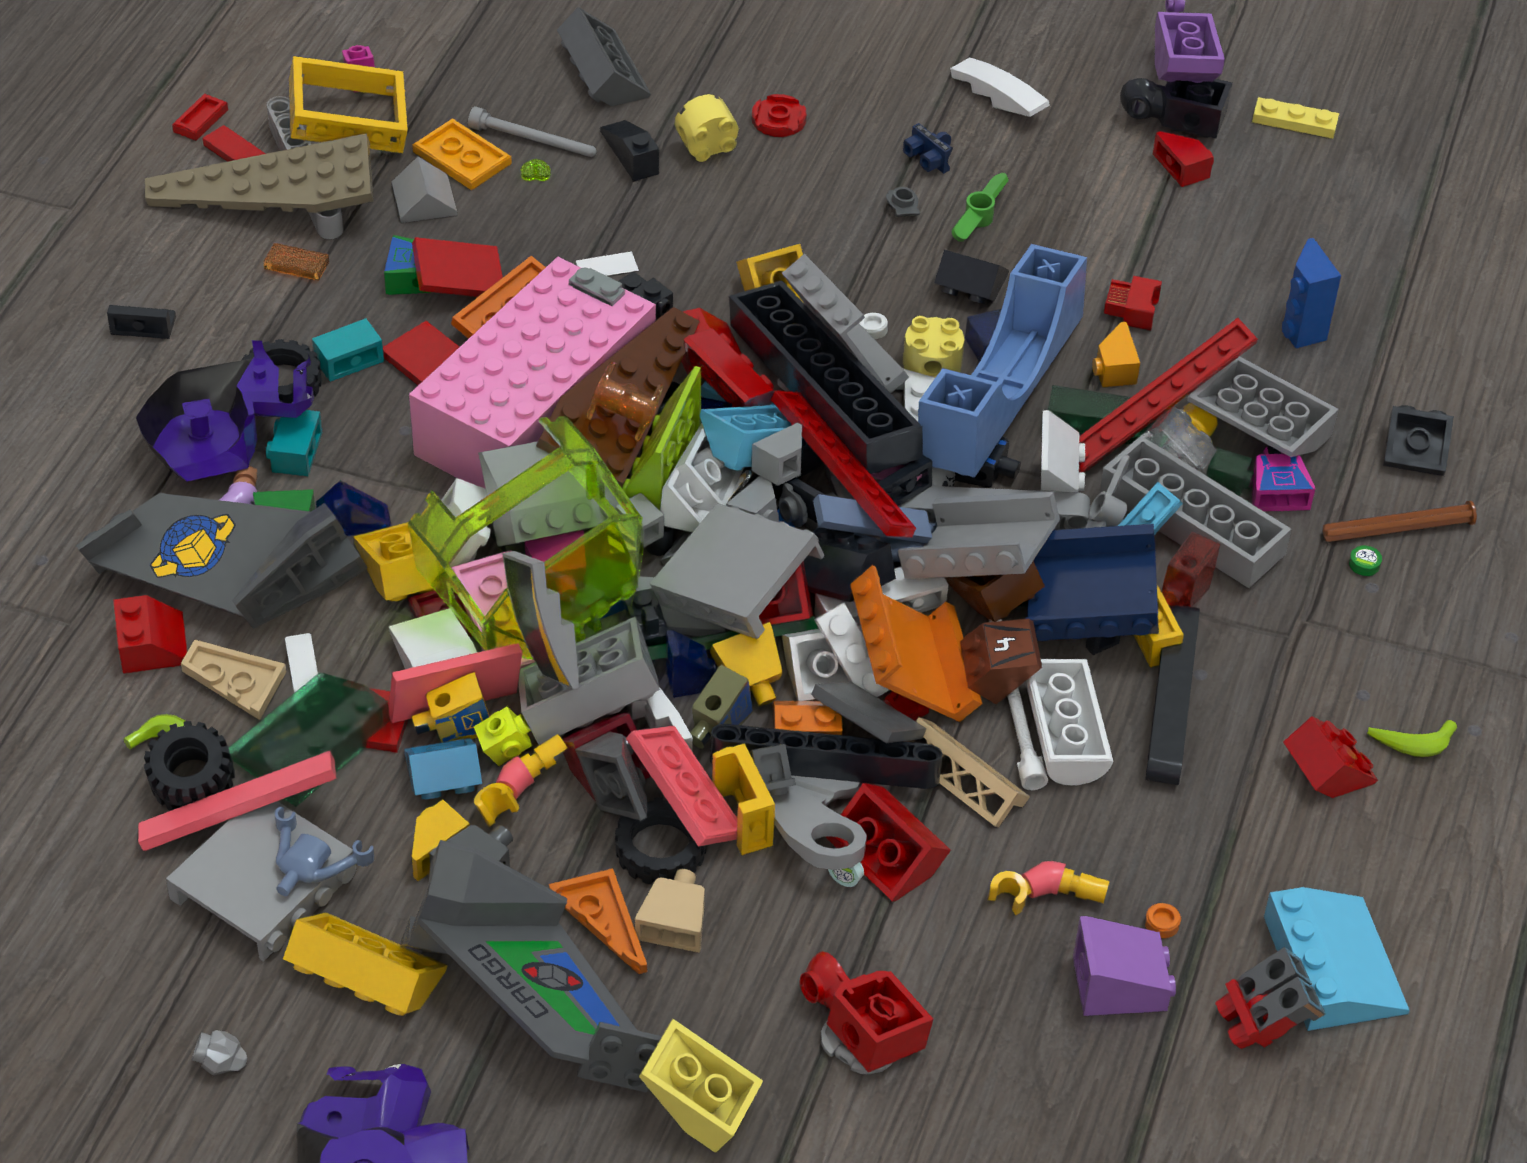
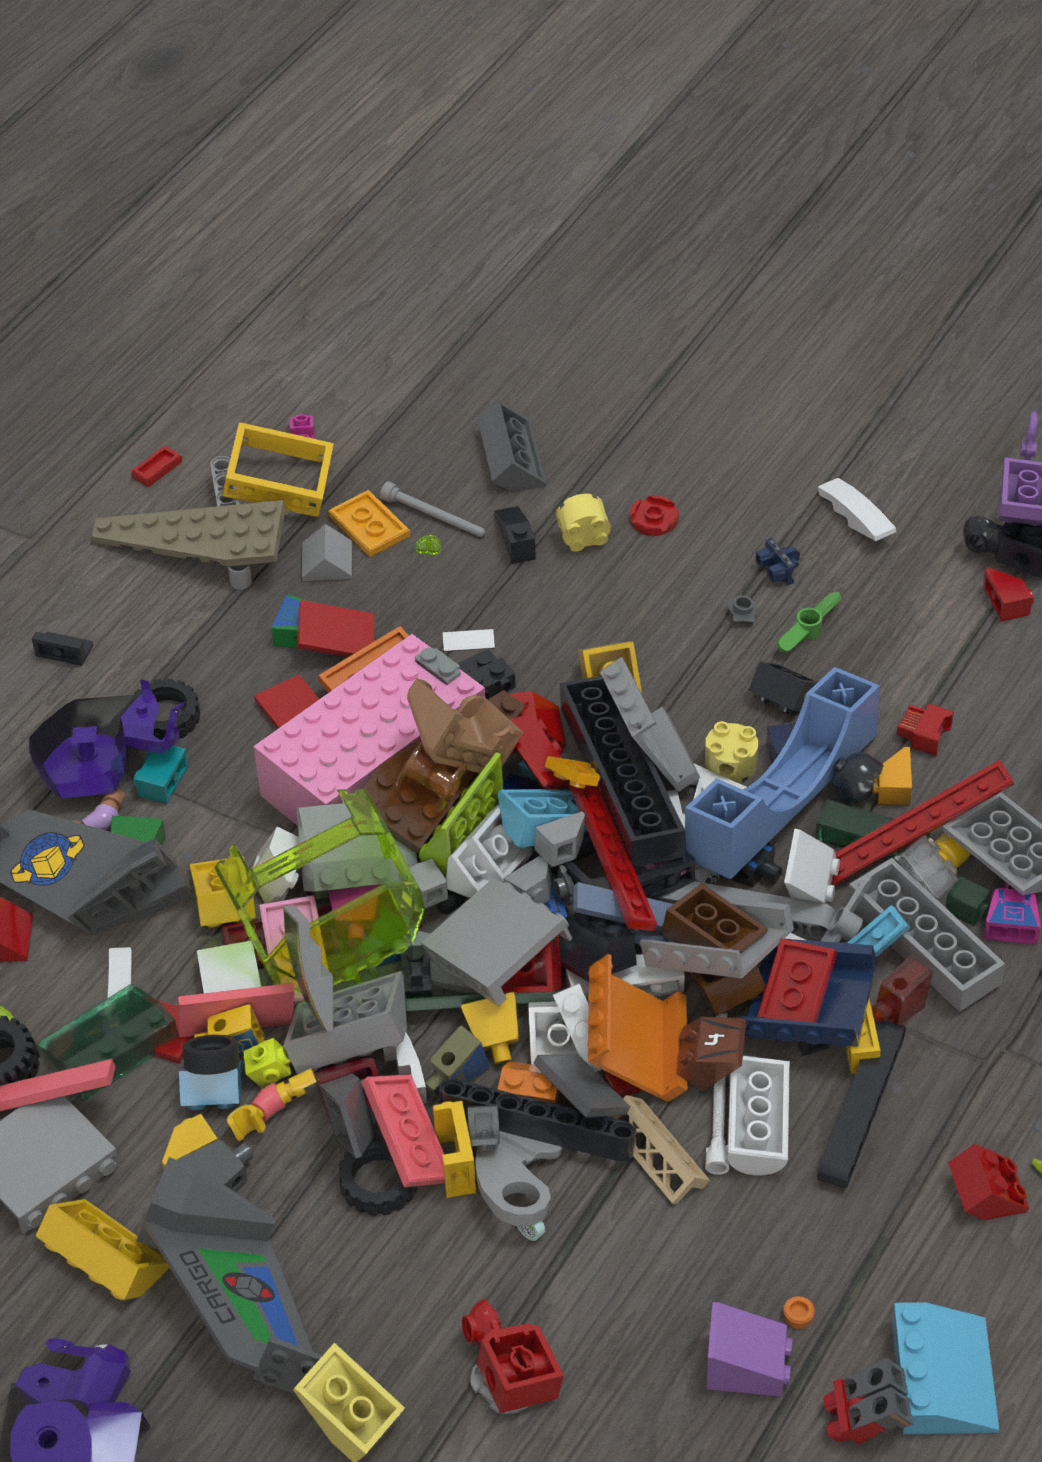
camera: 15 degrees right, 0 degrees up
(230, 145) = (175, 495): red tile -> none
(235, 675) = (60, 977): tan wing -> none
(296, 261) = (204, 607): clear orange tile -> none
(308, 854) = (70, 1151): sand blue piece -> none
(348, 349) = (226, 694): teal brick -> none
(355, 510) = (193, 842): clear blue slope -> none
(442, 732) = (211, 1054): none -> black tyre
(601, 908) = (311, 1227): orange wing -> none
(646, 346) = (464, 734): none -> medium nougat windscreen
(673, 913) = (372, 1242): tan torso -> none
(687, 665) = (439, 1018): clear blue slope -> none
(785, 386) = (576, 771): none -> light orange wing
(875, 325) = (686, 722): white tile -> none
(898, 845) = (579, 1206): red slope -> none
(969, 519) = (710, 921): none -> reddish brown slope
(1044, 879) = (702, 1259): yellow piece -> none
(1077, 358) = (854, 776): none -> black cylinder
(1078, 572) = (797, 982): none -> red tile

